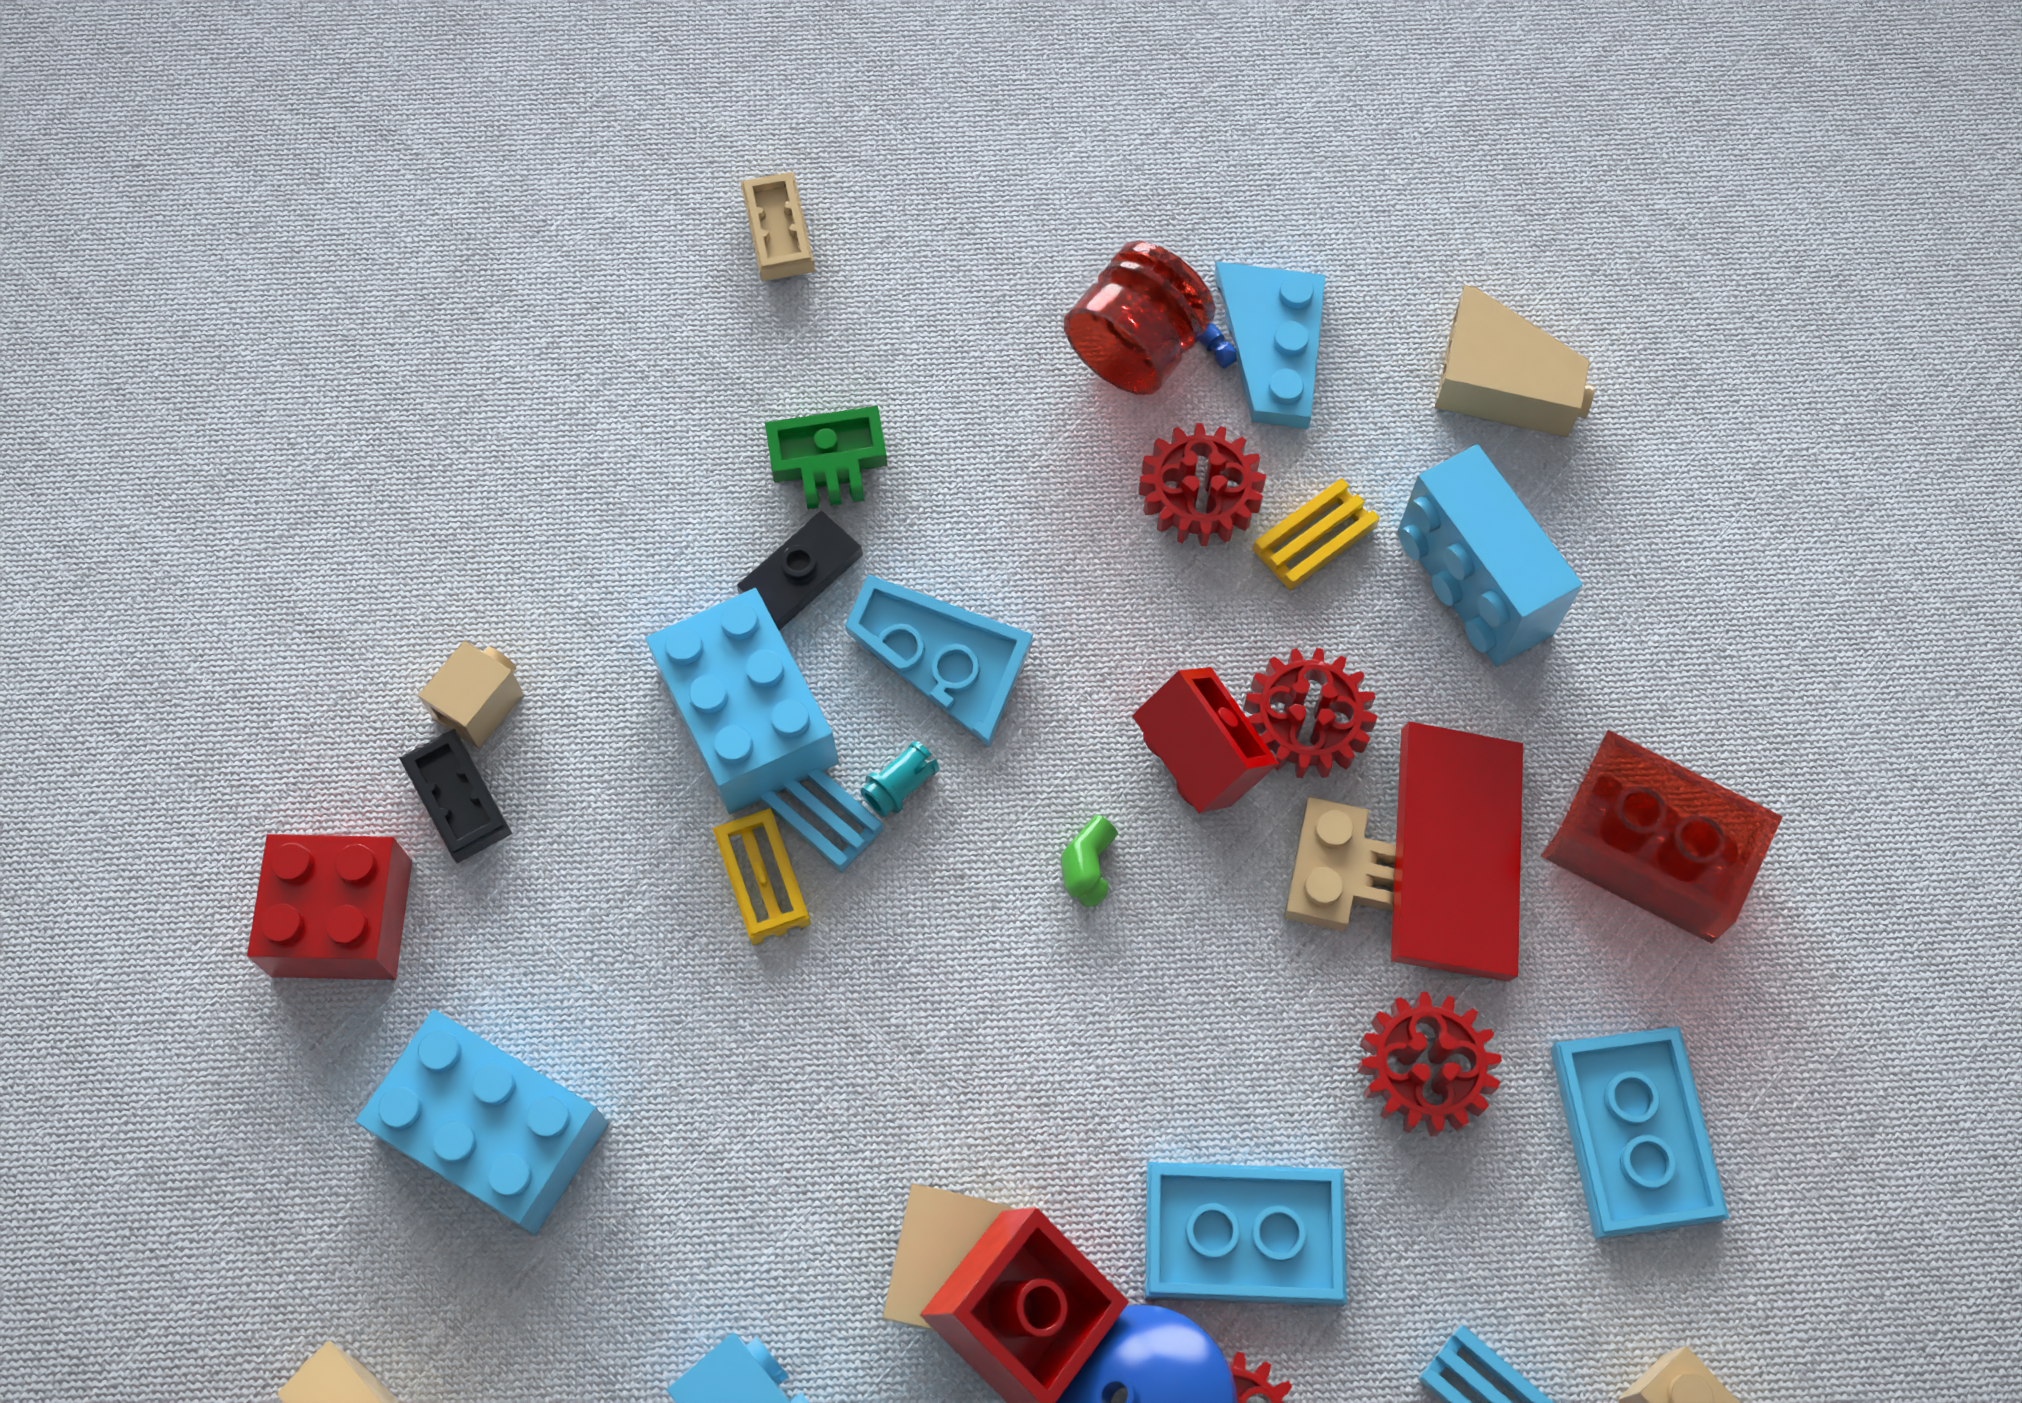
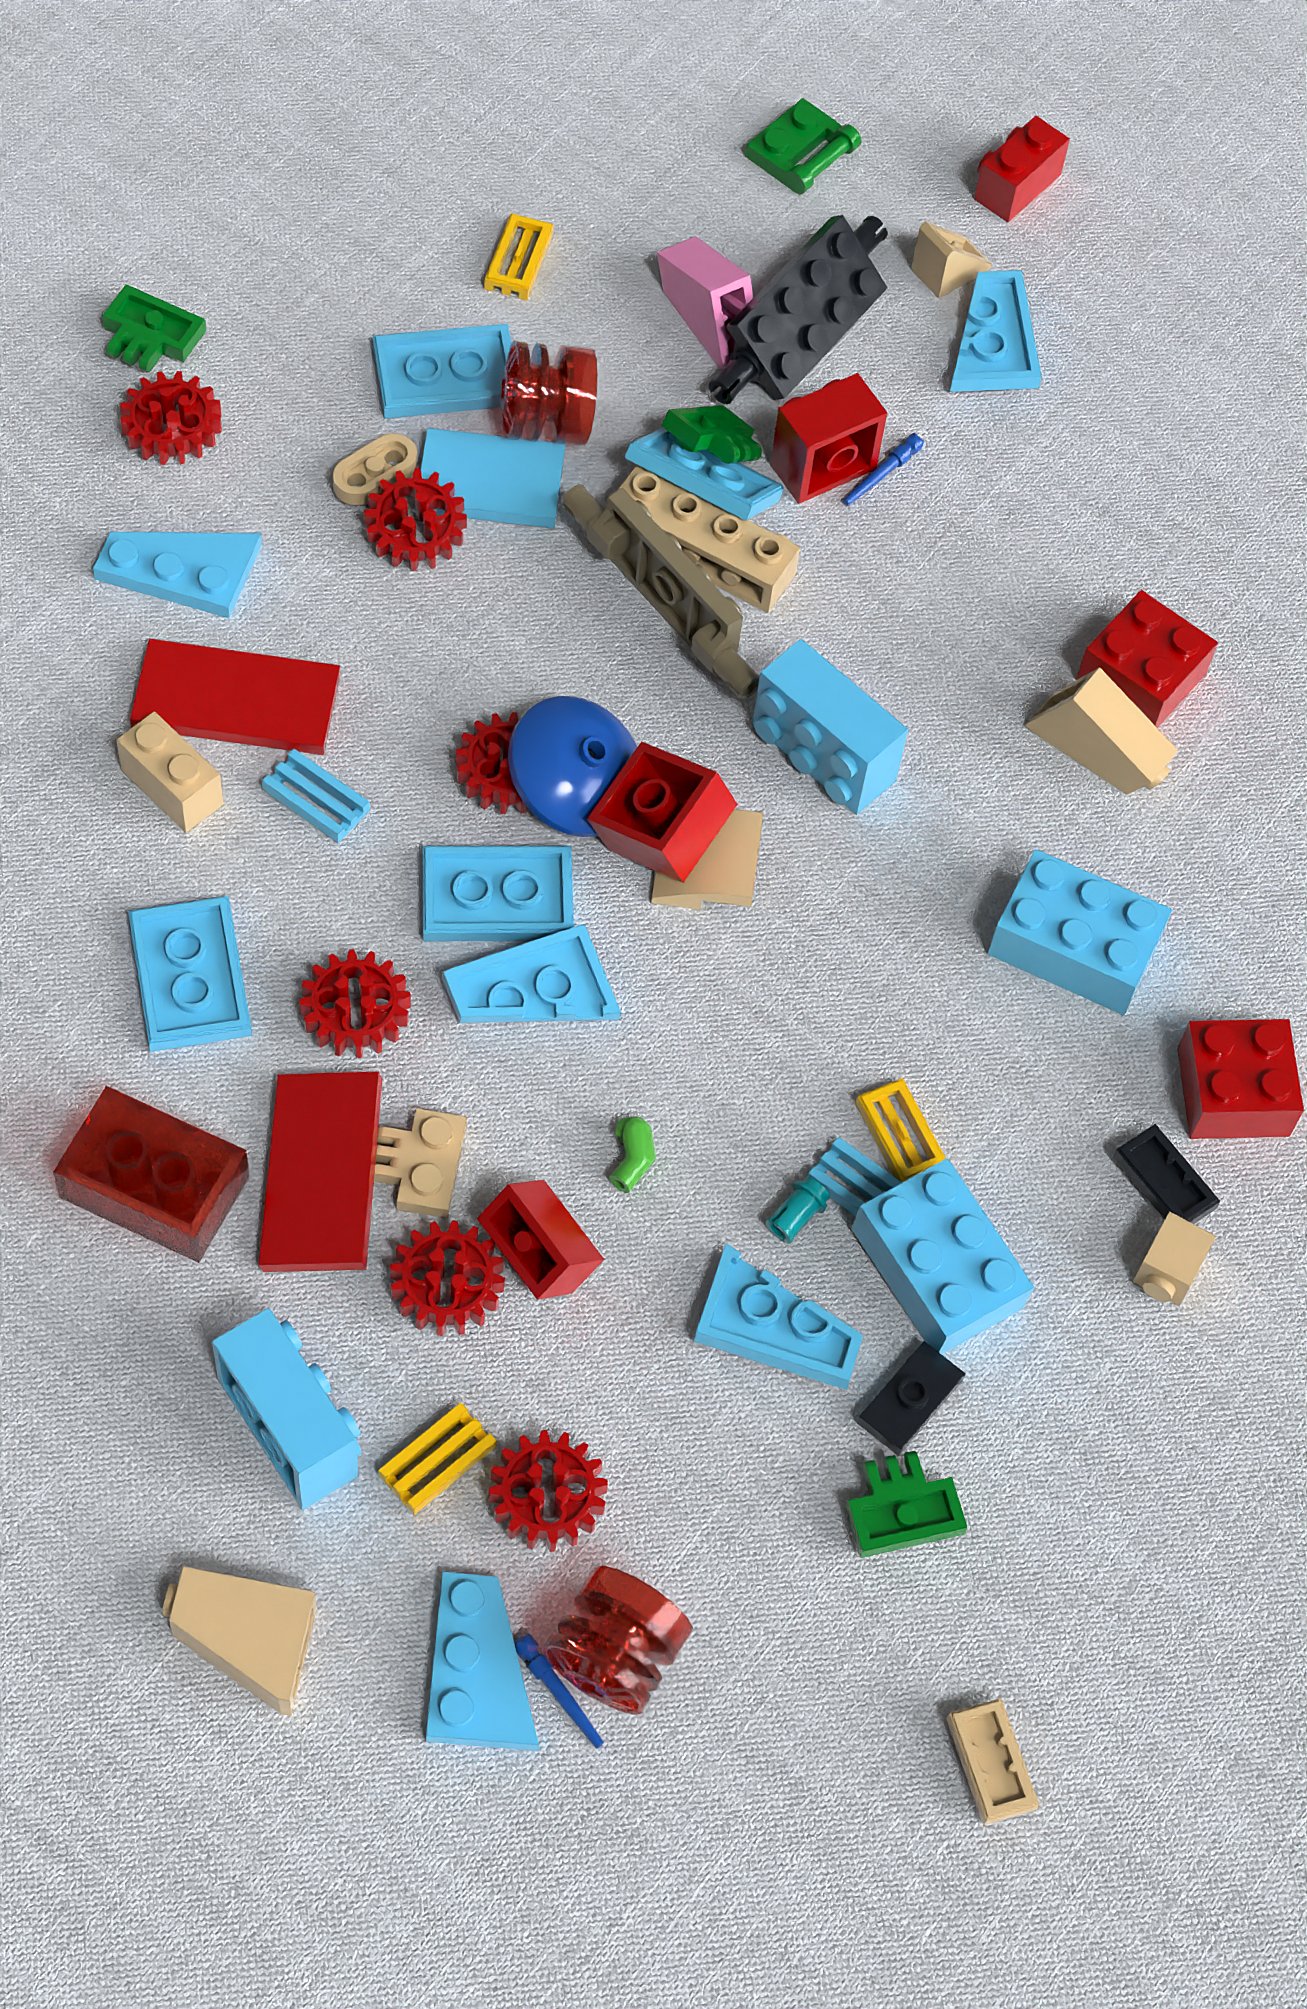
camera: 170 degrees right, 5 degrees down
(1201, 1091) = (534, 983): none -> medium azure wing

